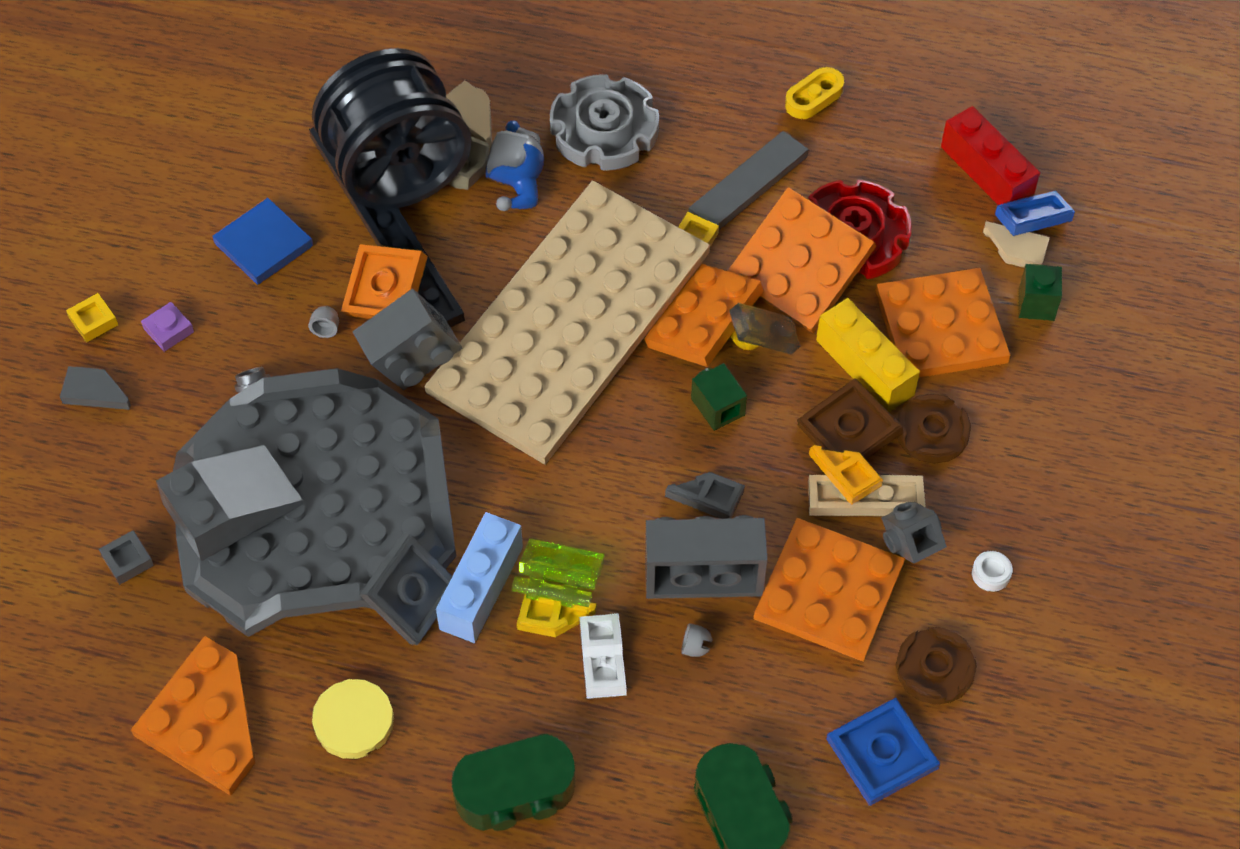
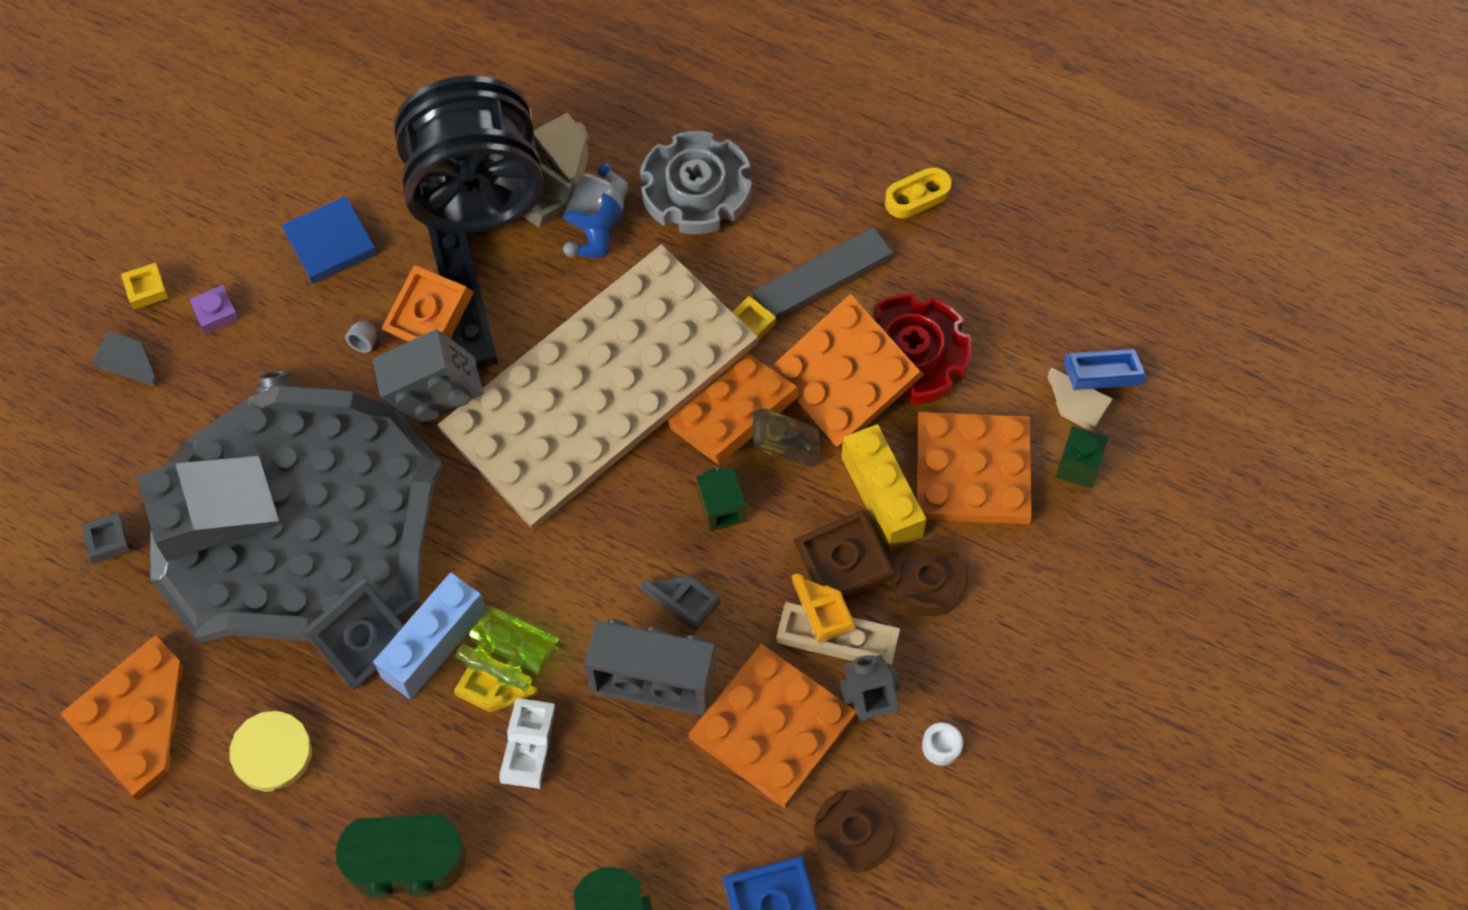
camera: 15 degrees right, 5 degrees up
(693, 641) = (618, 752): light grey hinge -> none
(989, 157) = (1074, 300): red brick -> none

